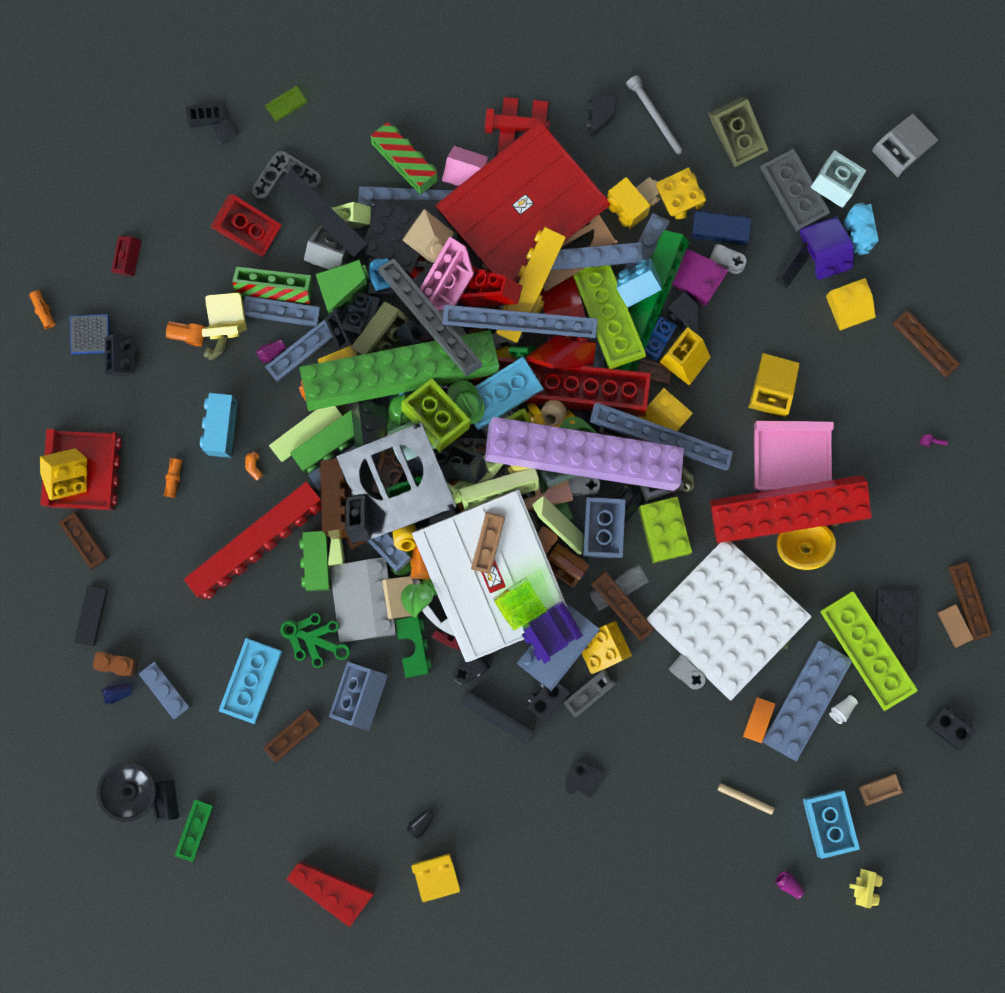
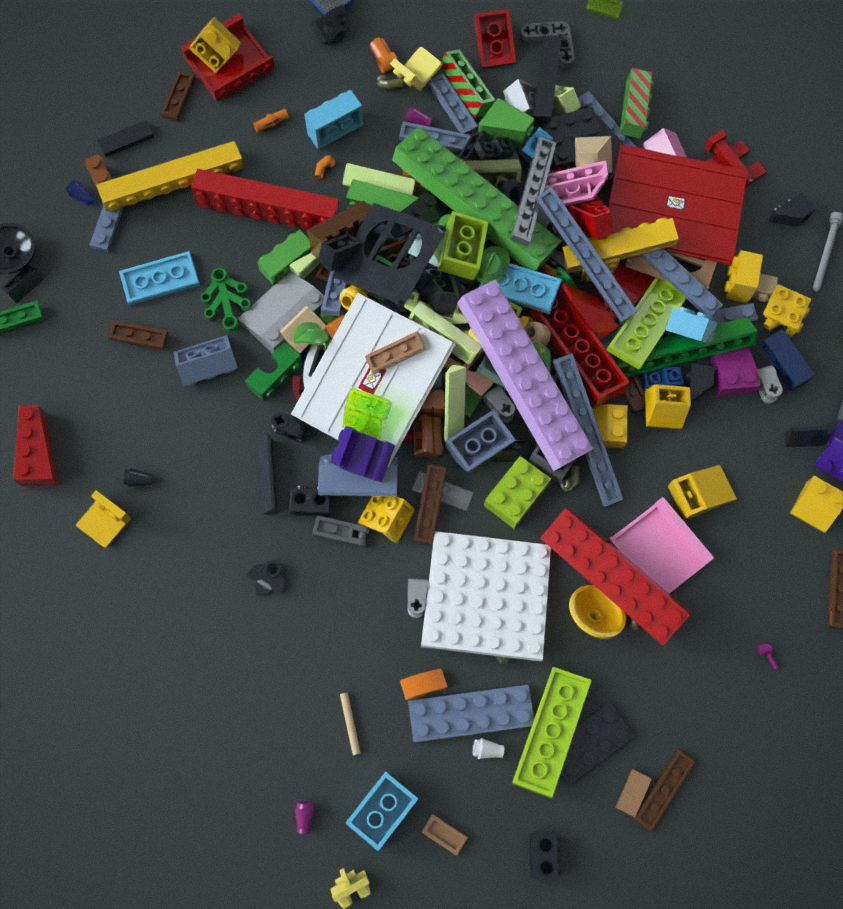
camera: 50 degrees right, 10 degrees down
(164, 604) = (168, 176): none -> yellow brick

